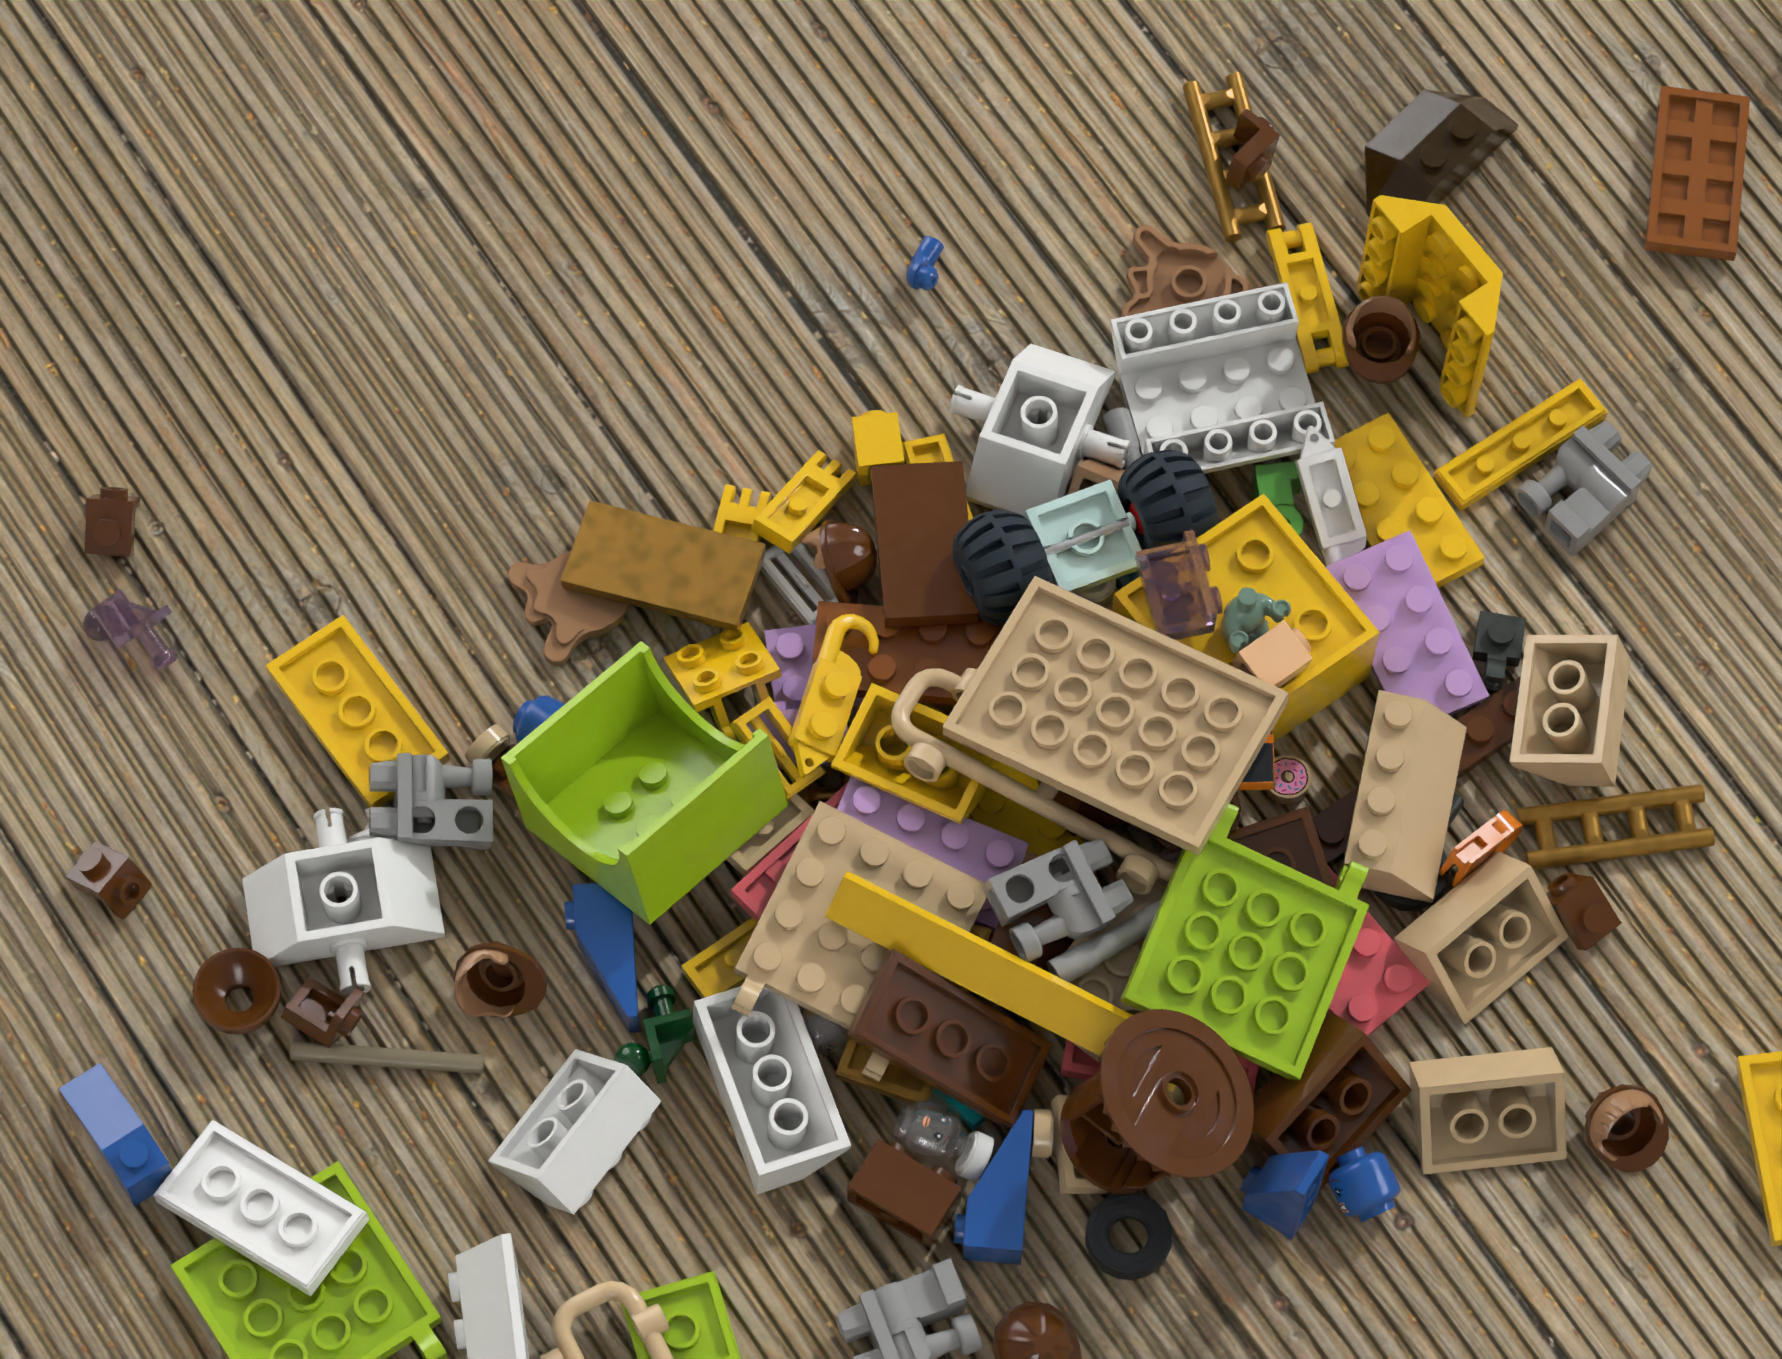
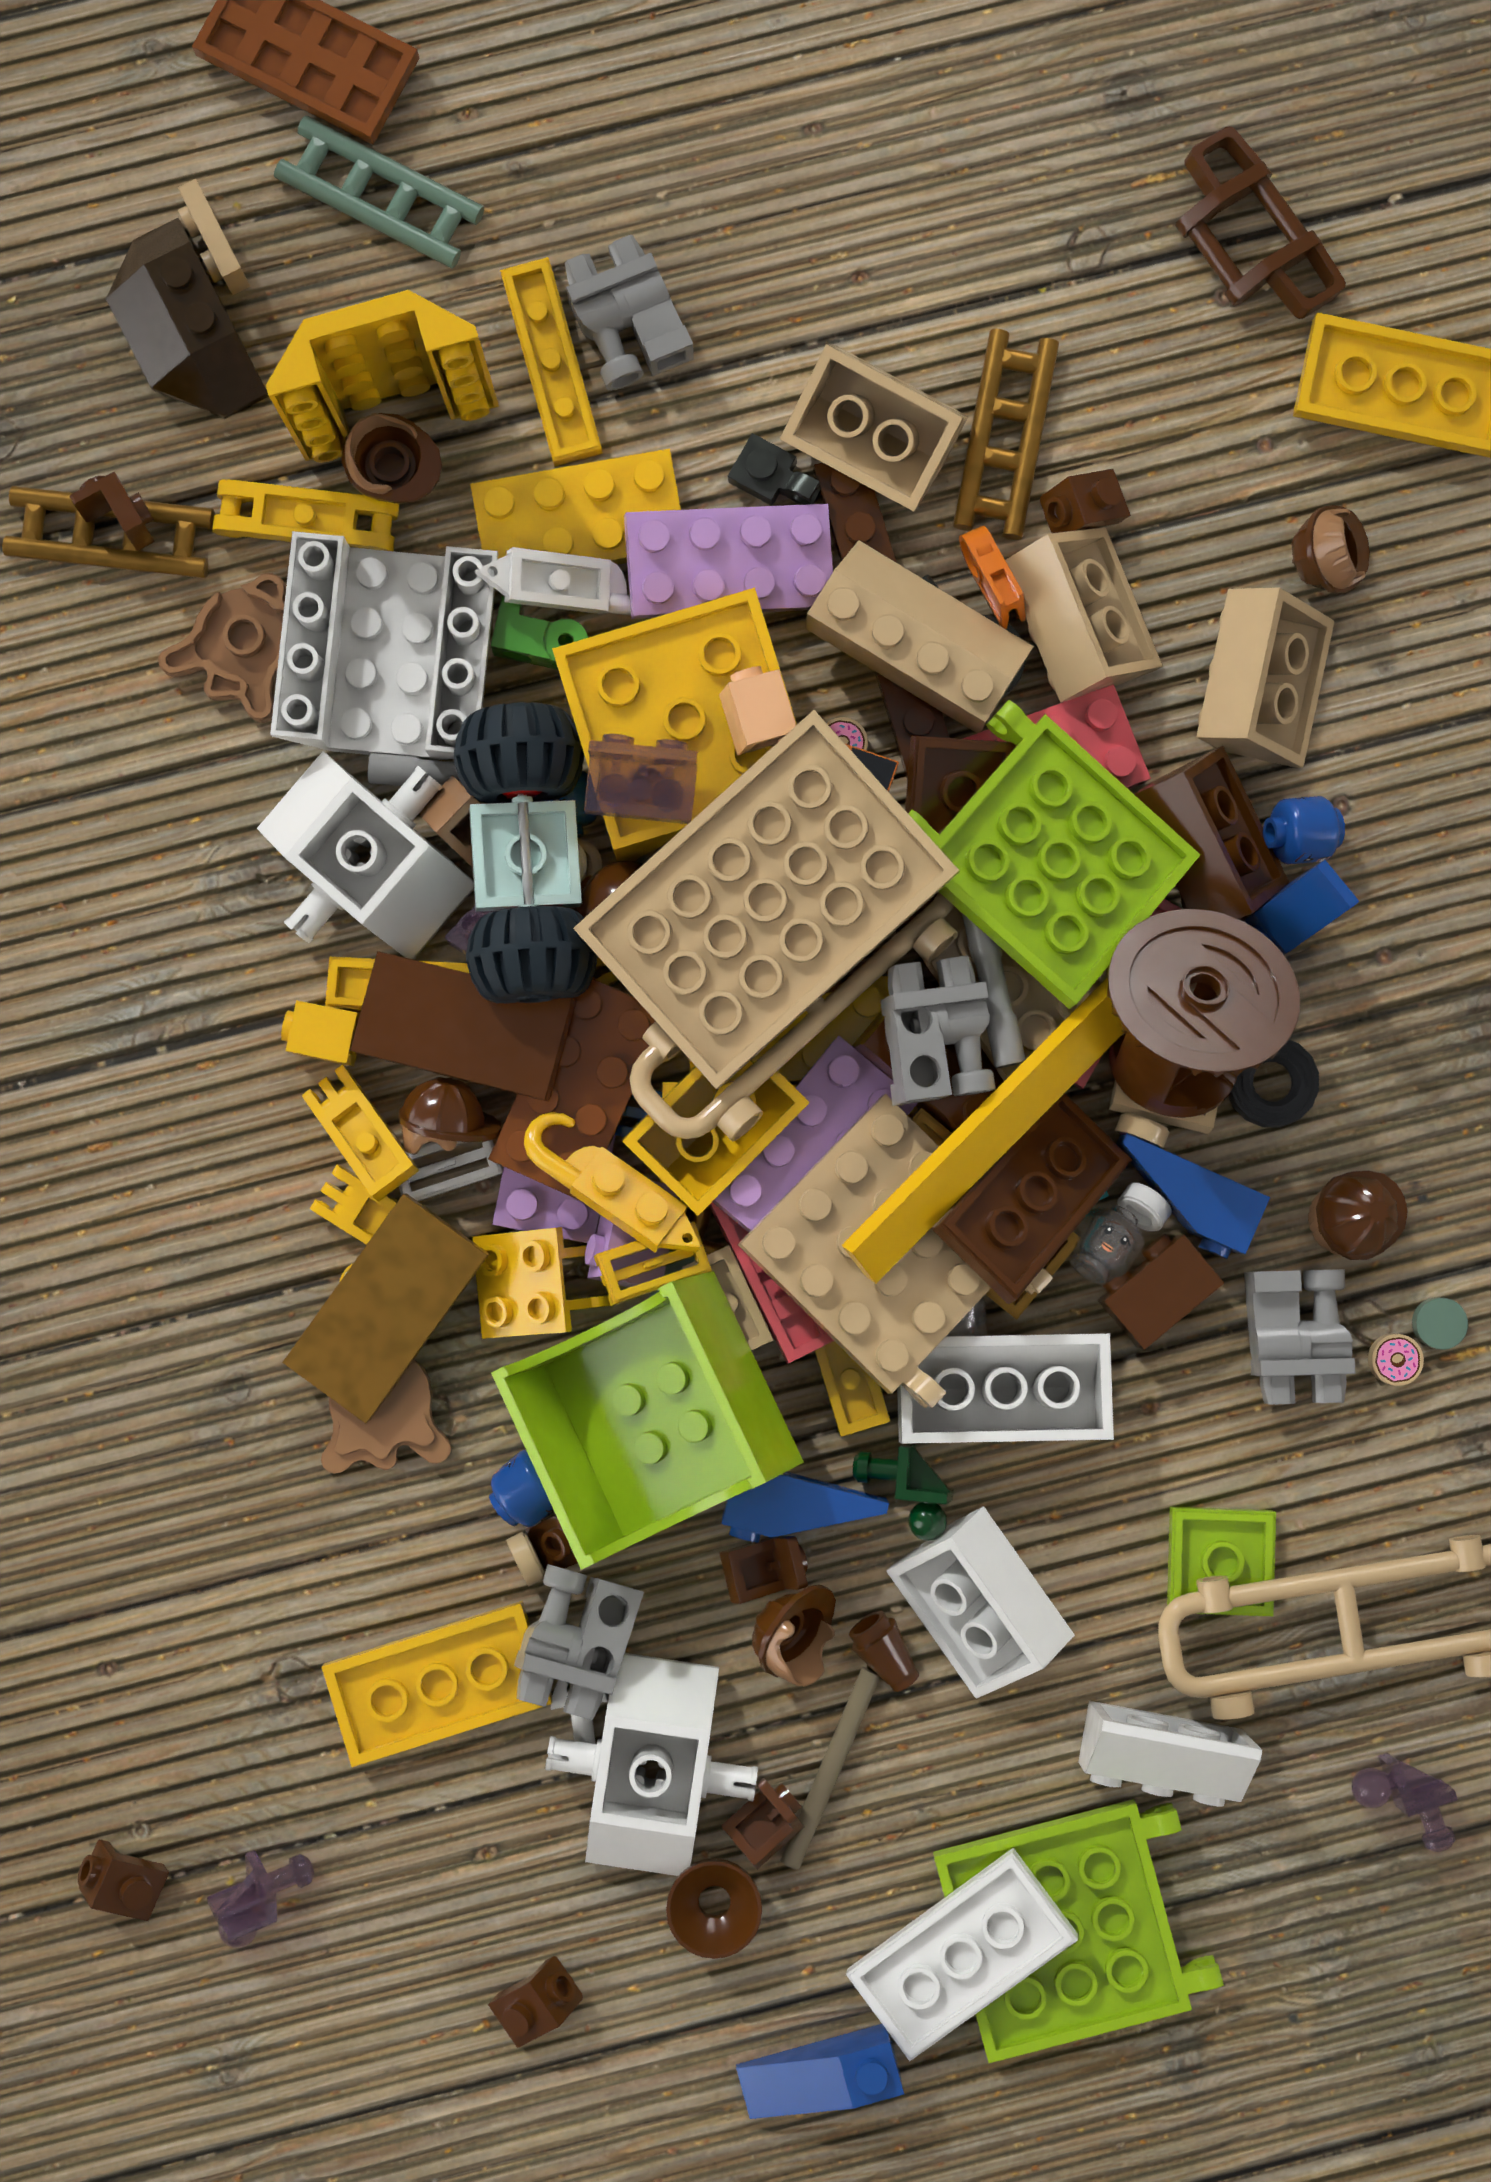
camera: 70 degrees left, 20 degrees up
(505, 1065) = (884, 1650): none -> reddish brown cone
(544, 938) = (764, 1568): none -> reddish brown bracket
(921, 269) = (113, 904): blue arm -> none
(1246, 620) = (703, 722): sand green piece -> none
(1518, 144) = (201, 221): none -> tan plate
(1586, 284) = (366, 163): none -> sand green bar

